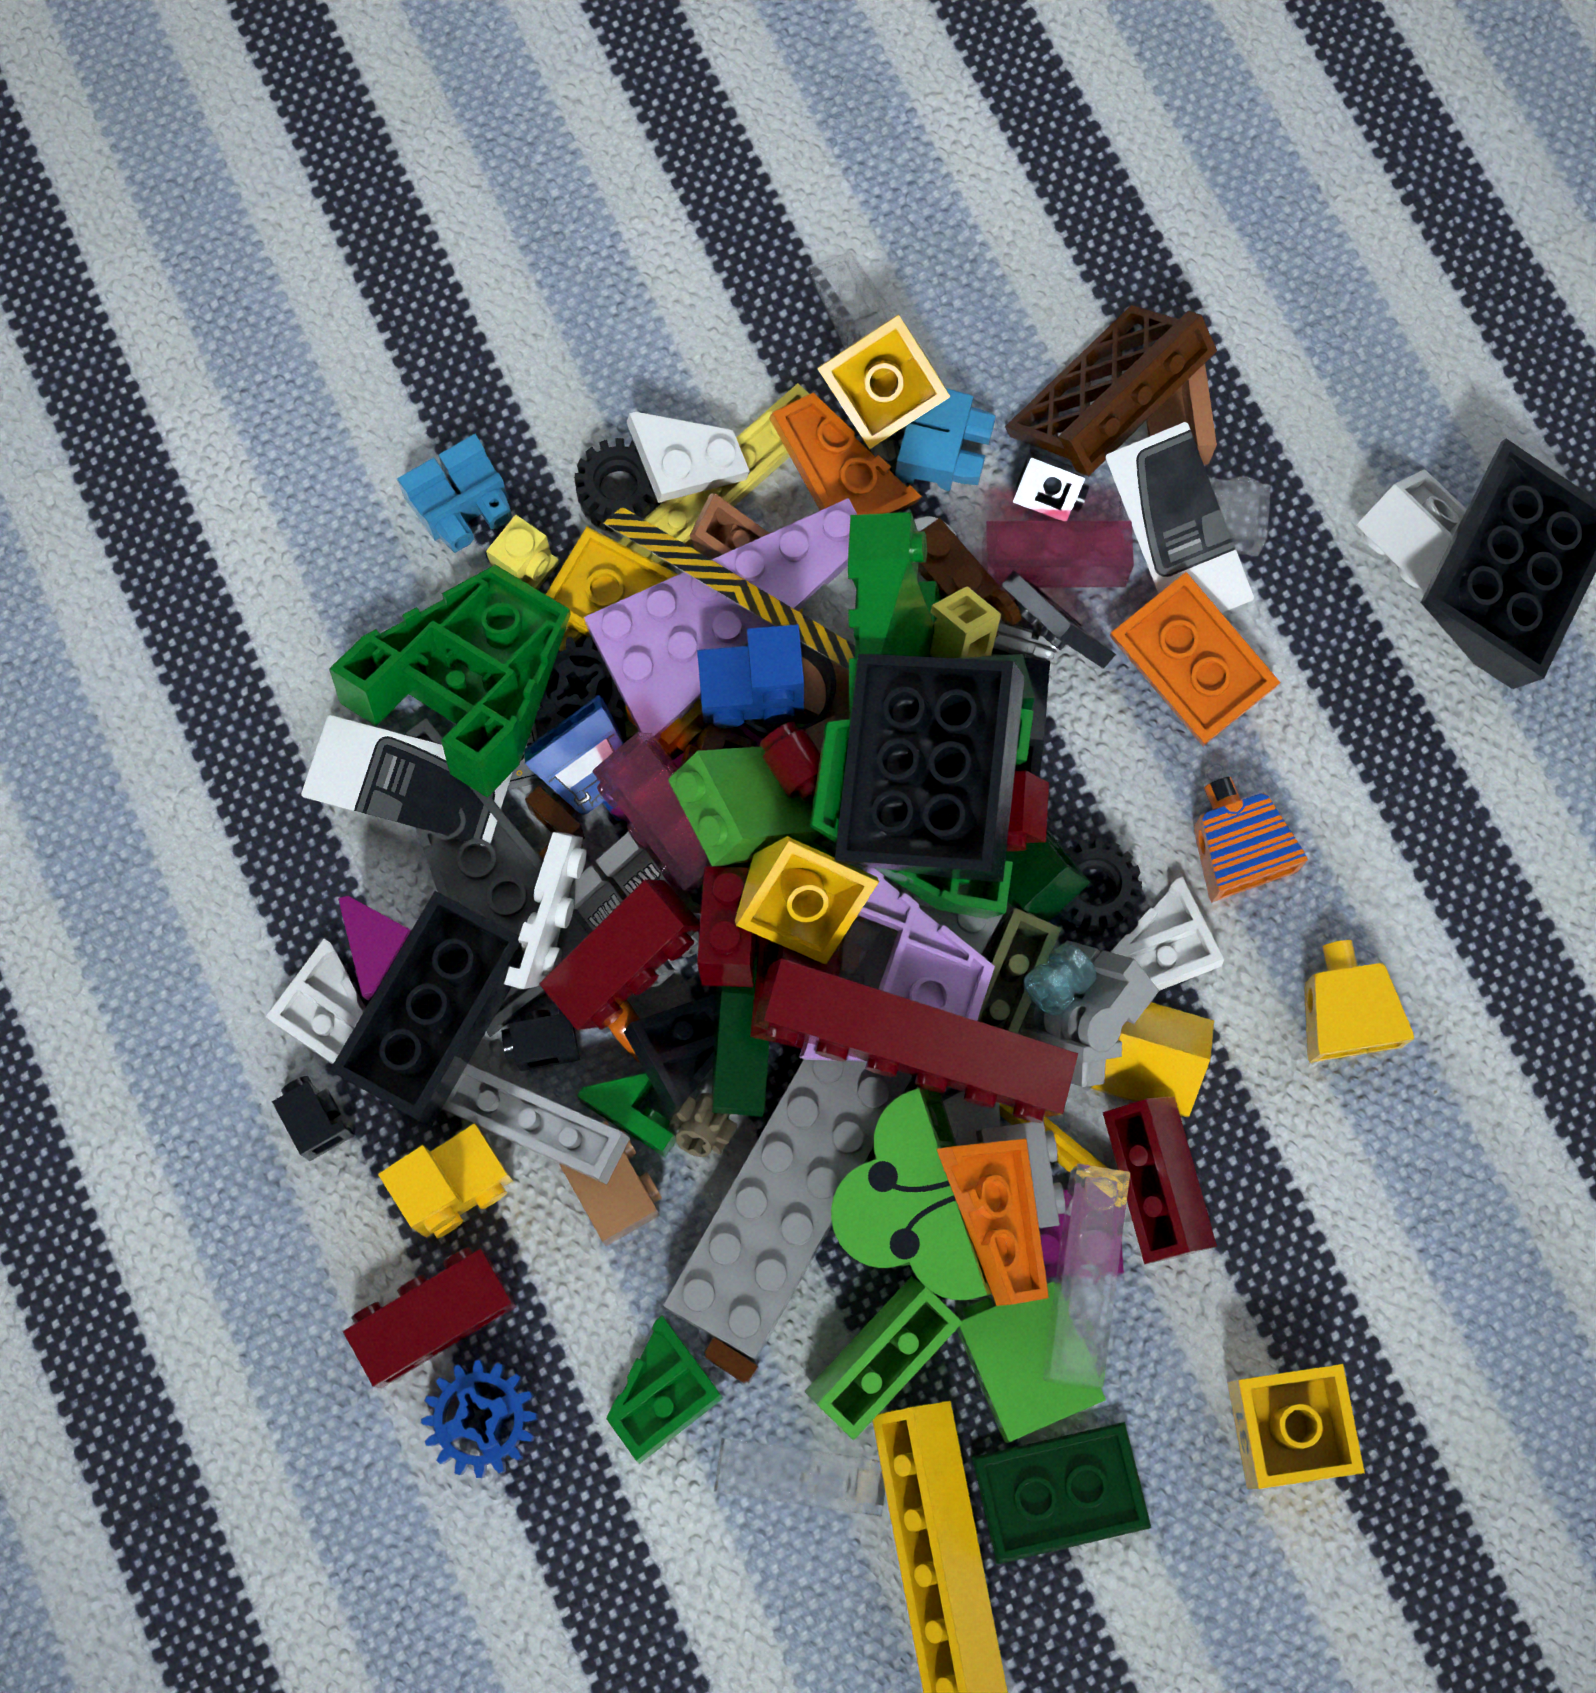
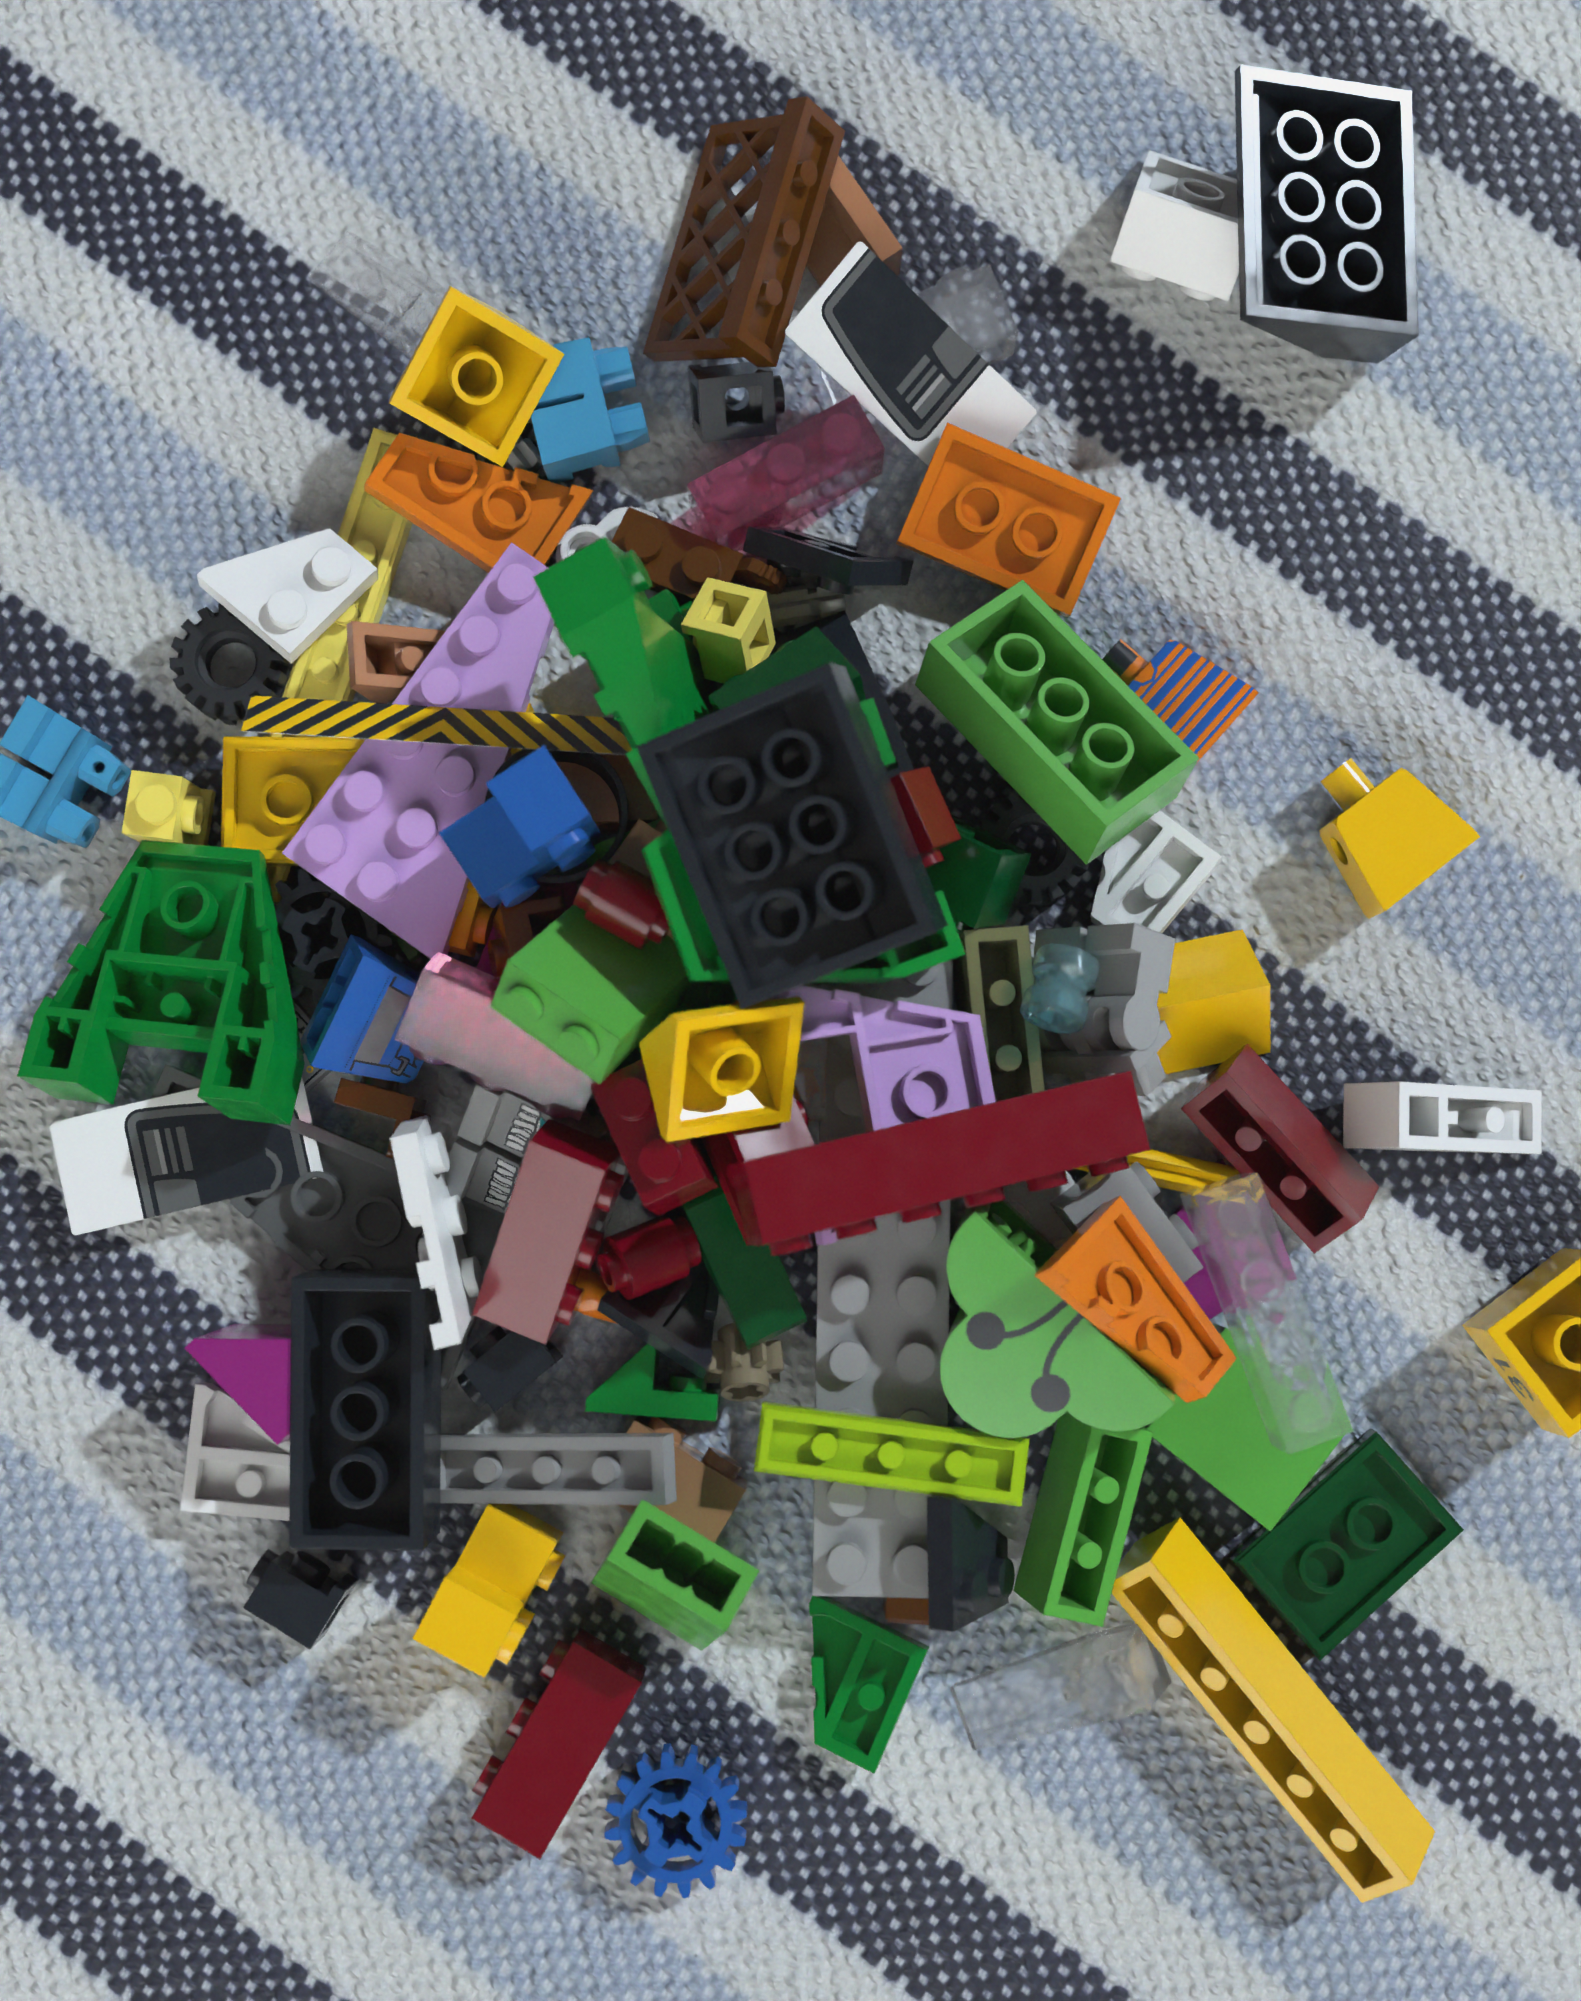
camera: 25 degrees left, 10 degrees up
(574, 1236) = (675, 1576): none -> bright green brick
(679, 1011) = (649, 1256): none -> dark red brick
(772, 1233) = (890, 1454): none -> lime tile
(781, 1342) = (965, 1565): none -> black wing
(1154, 803) = (1054, 721): none -> bright green brick
(1288, 1224) = (1441, 1118): none -> white slope

